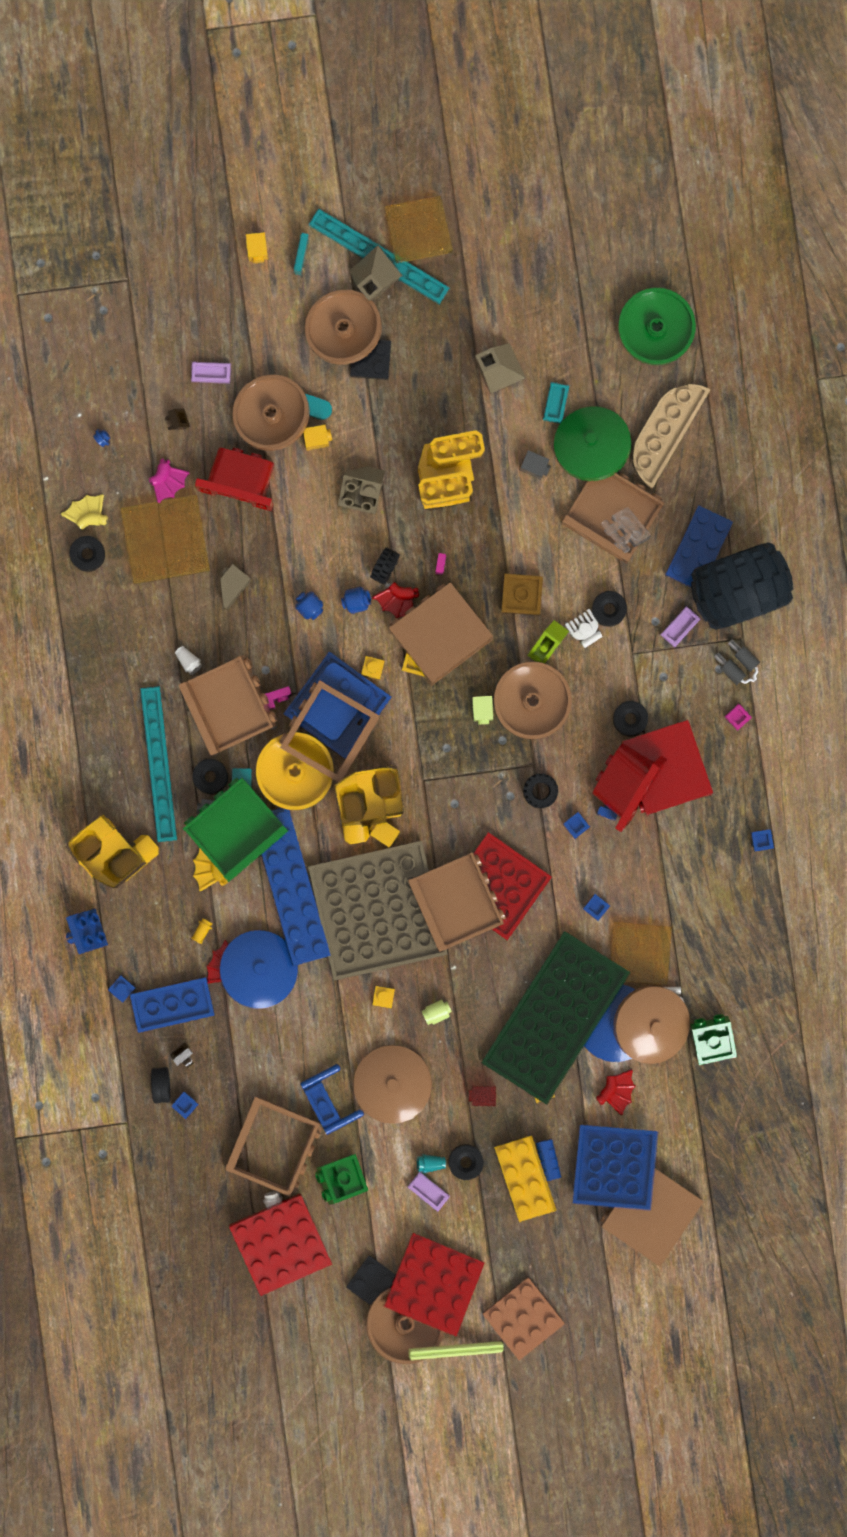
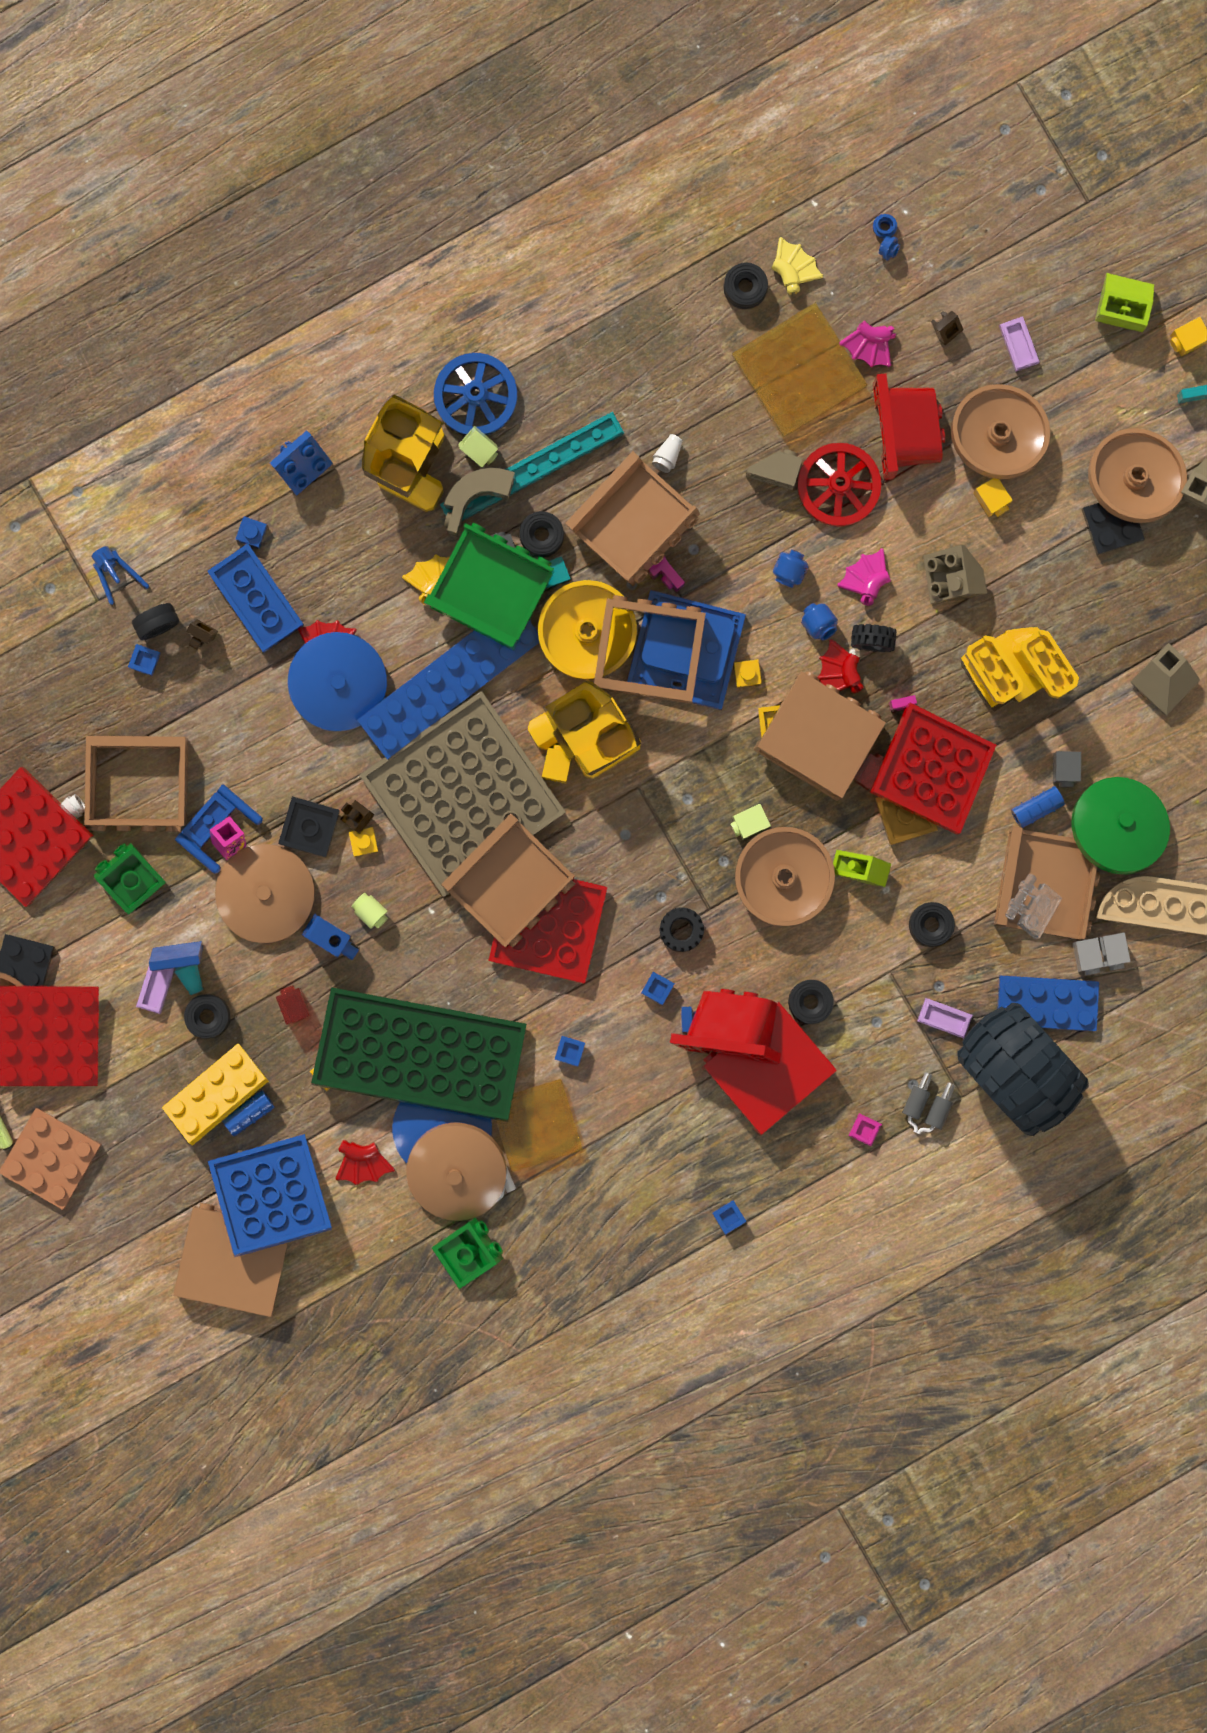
camera: 70 degrees right, 0 degrees up
(63, 767) = (475, 401): none -> blue wheel
(84, 428) = (888, 219): none -> blue plate
(100, 1104) = (105, 561): none -> blue plant
(127, 796) = (479, 447): none -> yellowish green brick
(155, 805) = (478, 483): none -> dark tan arch
(202, 930) = (354, 597): yellow pin -> none
(212, 283) = (1125, 303): none -> lime slope
(261, 550) = (834, 489): none -> red wheel
(319, 408) = (1029, 486): teal tile -> none
(337, 552) = (866, 577): none -> dark pink arm
(342, 1095) = (227, 838): none -> dark pink brick
(357, 1032) = (309, 827): none -> black plate
(363, 994) = (356, 816): none -> dark brown tile
(413, 1167) = (176, 956): none -> blue tile
(438, 1054) = (320, 931): none -> blue torso
(482, 606) = (868, 771): none -> clear red brick
(497, 561) = (933, 768): none -> red plate
(555, 497) = (1038, 807): none -> blue axle
(556, 403) = (1151, 763): teal tile -> none
(585, 631) = (893, 908): white piece -> none
(676, 504) = (1113, 949): none -> light grey piece

